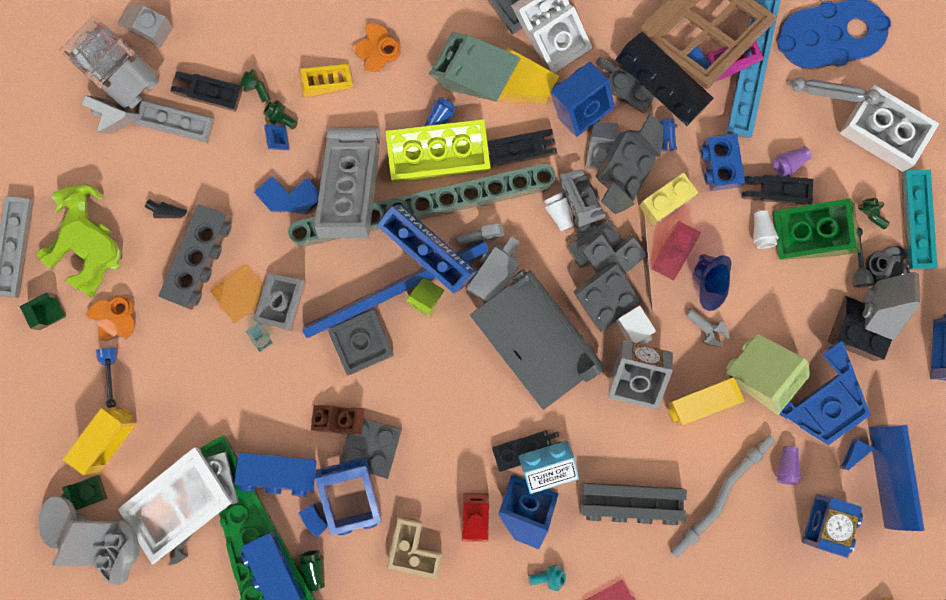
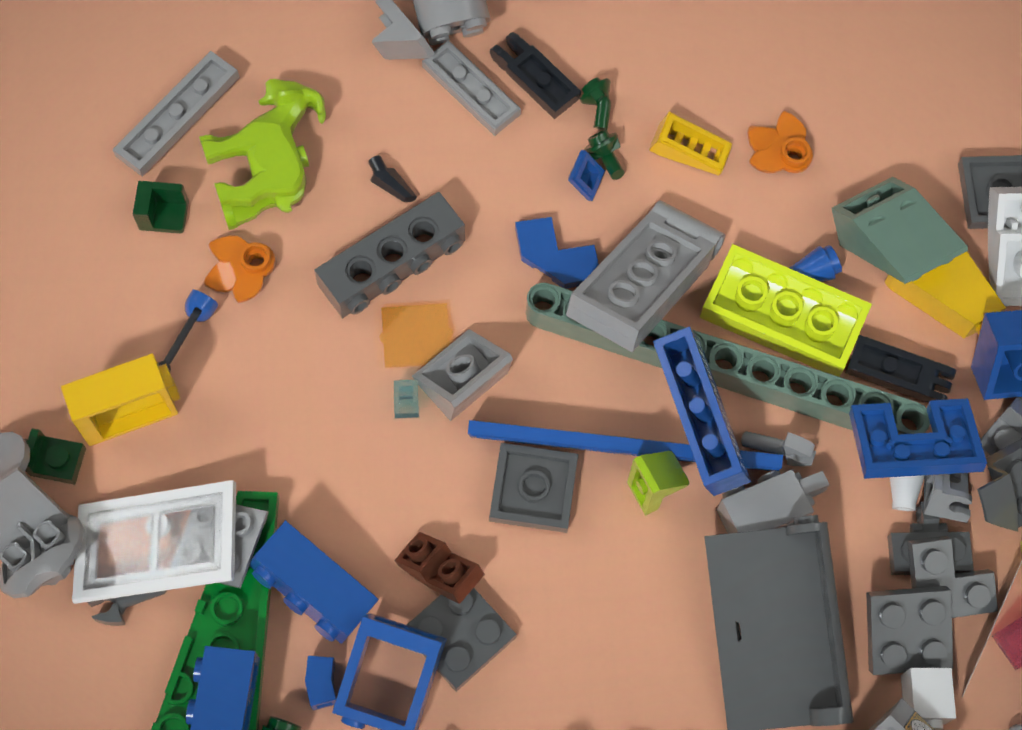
camera: 30 degrees right, 15 degrees down
(543, 208) = (948, 450): none -> blue plate

